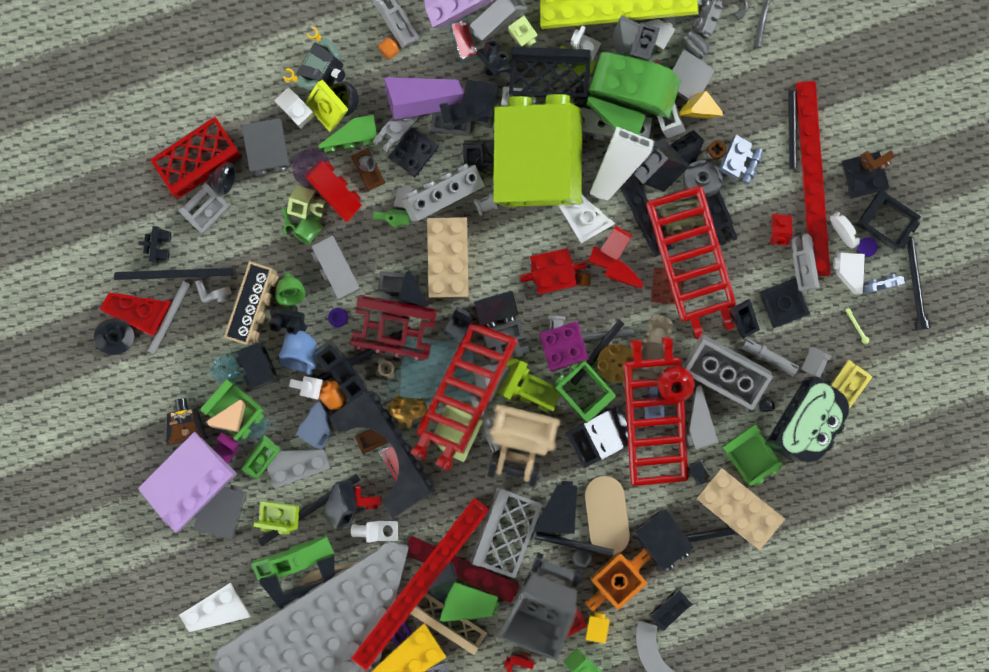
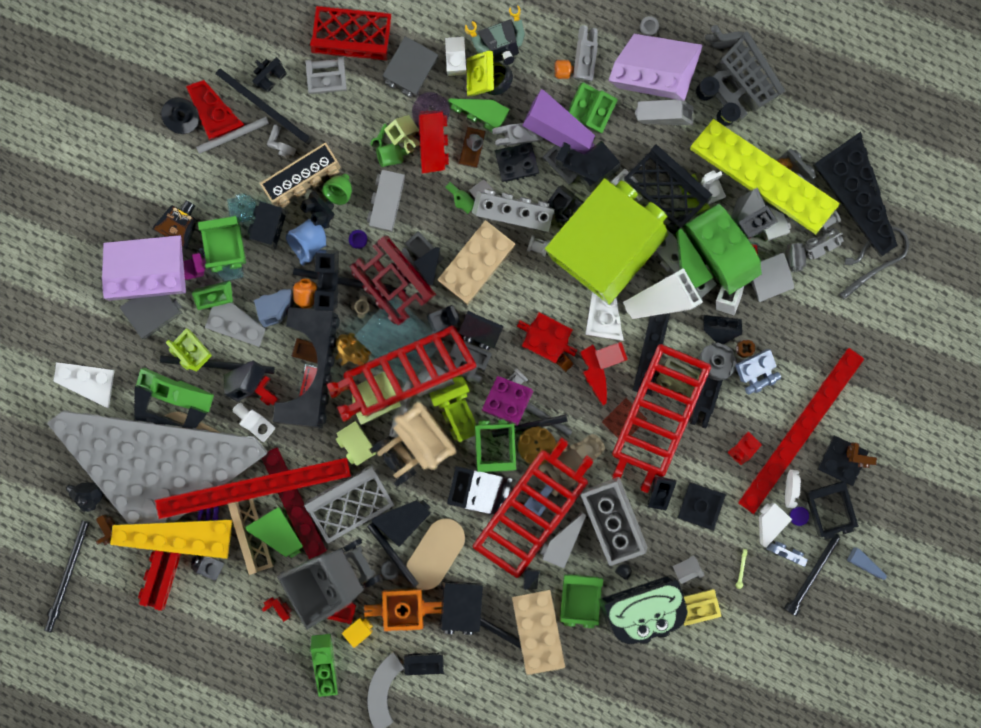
camera: 40 degrees right, 0 degrees up
(223, 178) = (358, 65): black hat -> none
(230, 418) = (214, 247): light nougat slope -> none
(309, 387) = (293, 272): white plate -> none
(436, 59) = (592, 107): none -> bright green slope
(444, 582) = (271, 502): black slope -> none
(463, 40) = (624, 110): slope -> none
(471, 480) = (355, 443): none -> yellowish green brick
(494, 61) = (634, 144): black hips -> none
(523, 32) = (673, 140): yellowish green brick -> none
(661, 166) = (693, 326): black slope -> none
(672, 375) = (570, 489): red piece -> none
(701, 106) = (761, 306): yellow slope -> none
(768, 356) = (653, 530): light grey pin -> none
(792, 130) = (816, 381): black bar -> none
(805, 263) = (741, 489): light grey hinge -> none
(946, 241) = (859, 559): none -> sand blue slope

